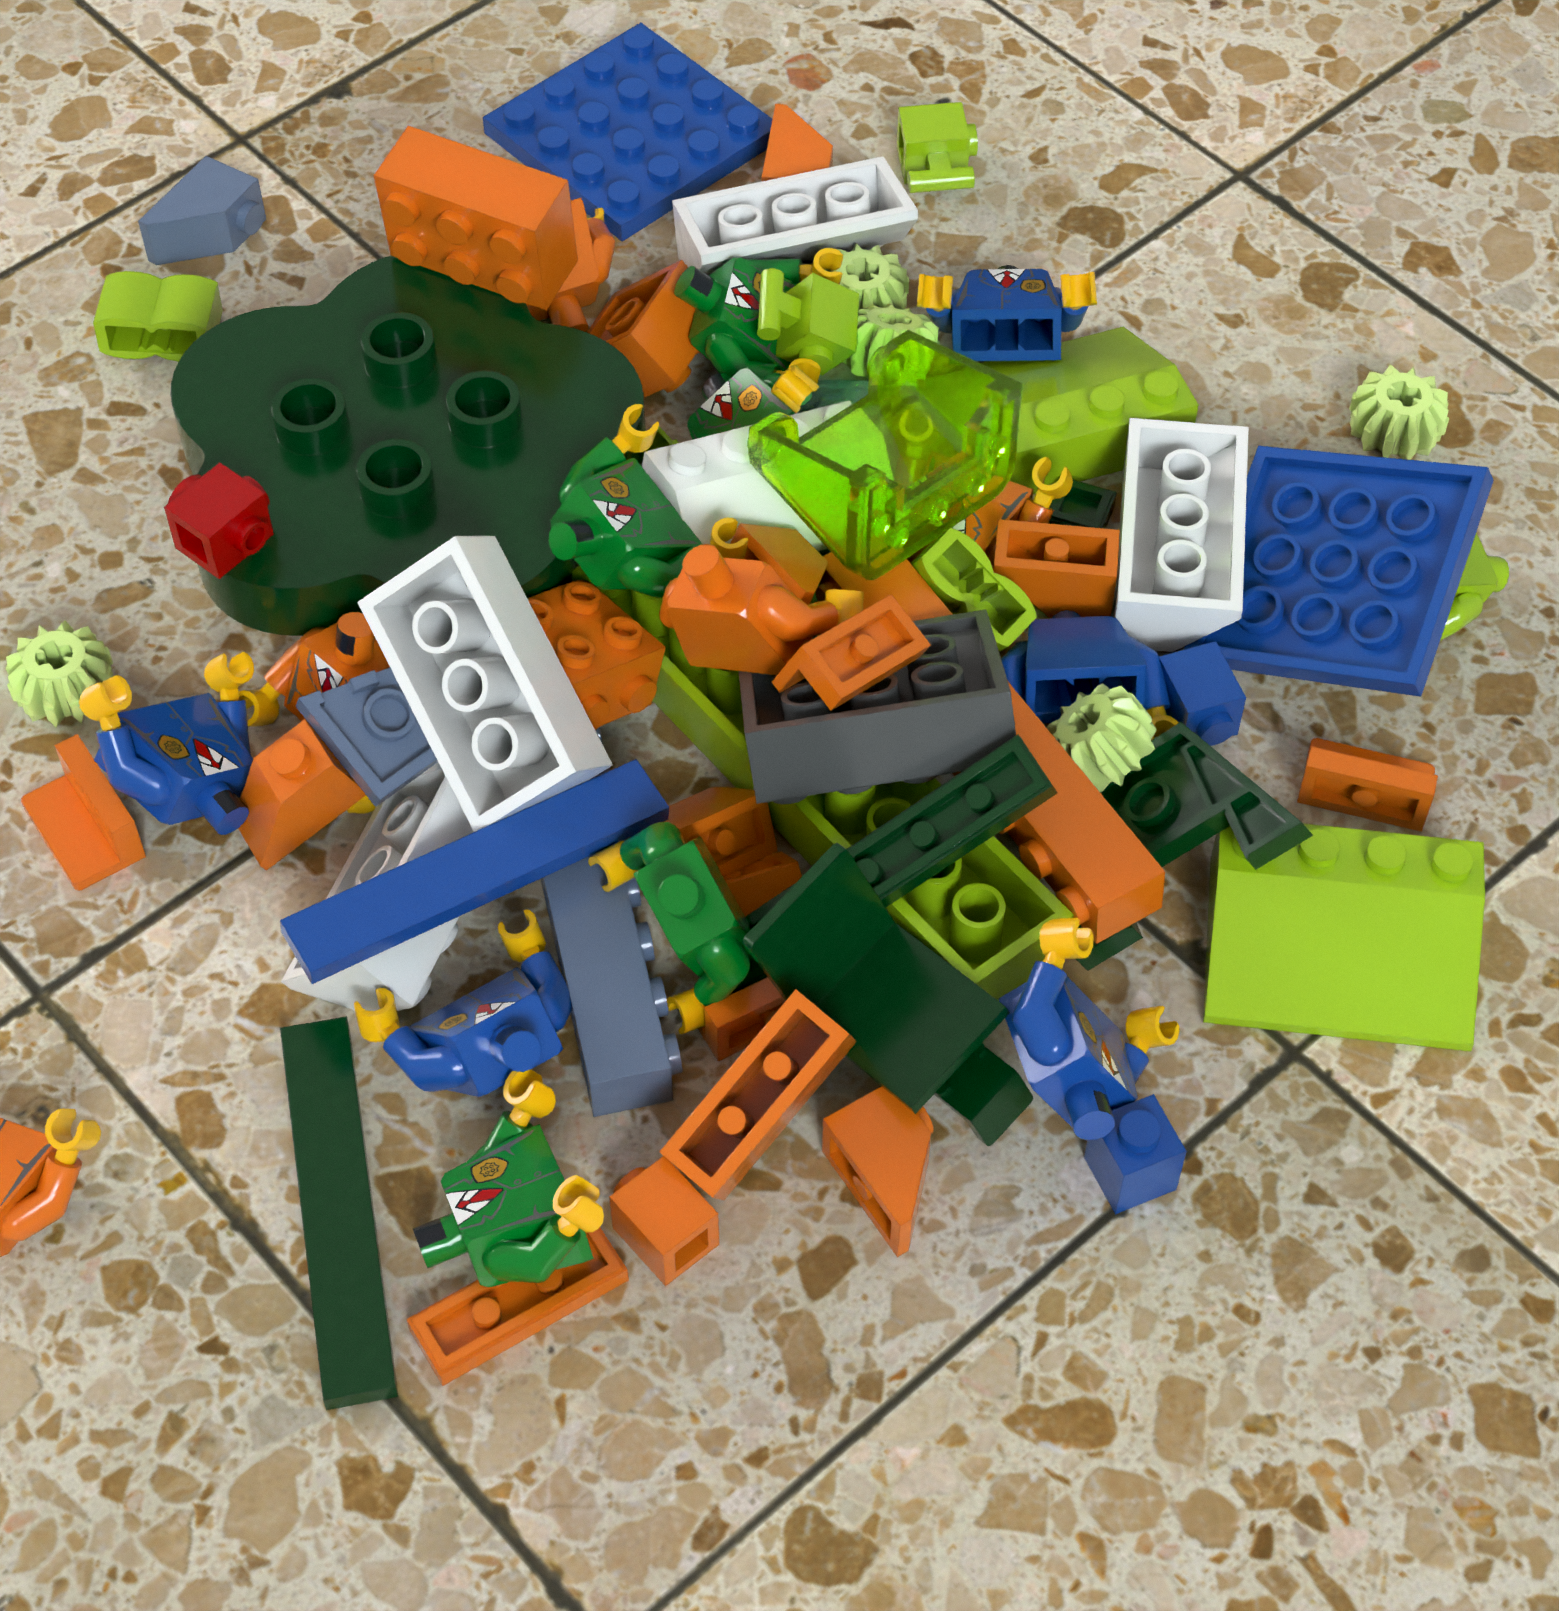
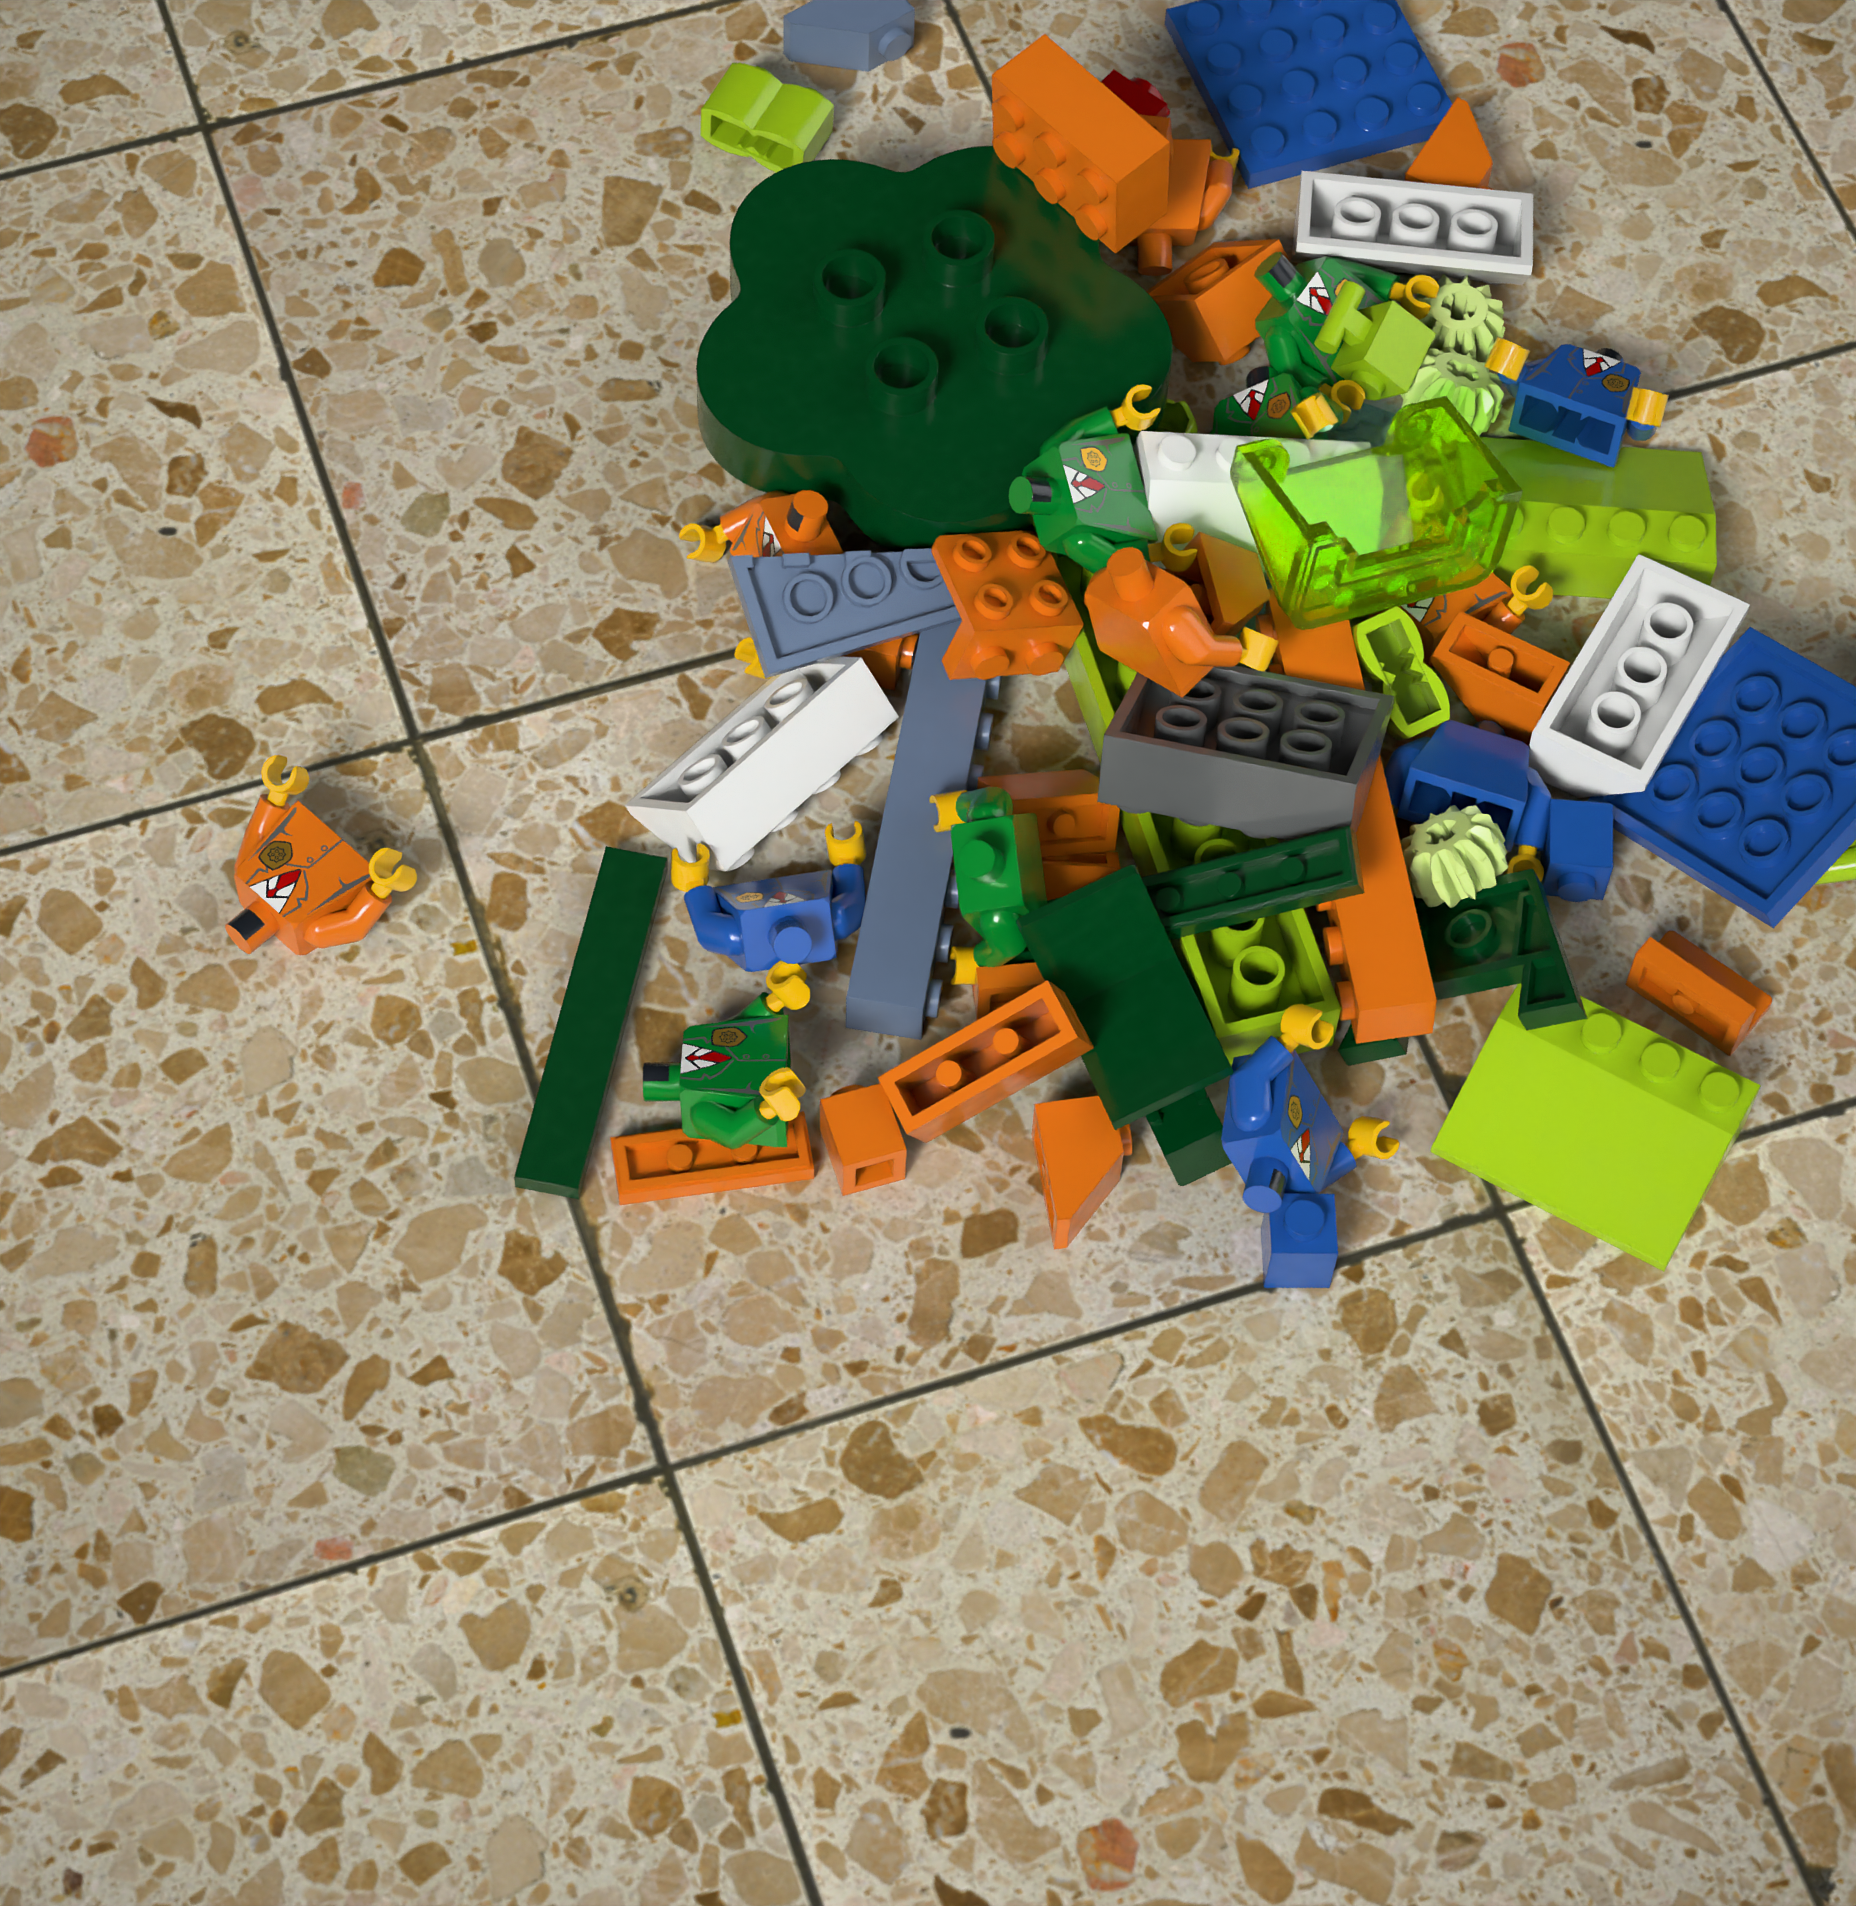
camera: 20 degrees right, 5 degrees up
(55, 670) = (541, 448): yellowish green gear -> none
(83, 819) = (510, 593): orange panel -> none
(179, 754) = (617, 566): blue torso -> none
(219, 518) = (725, 361): red brick -> none
(293, 794) = (698, 639): orange slope -> none
(472, 871) = (825, 769): blue tile -> none
(483, 680) = (897, 602): white brick -> none
(855, 653) = (1239, 697): orange panel -> none
(936, 147) = (1603, 197): lime brick -> none
(1084, 506) = (1560, 626): dark green tile -> none

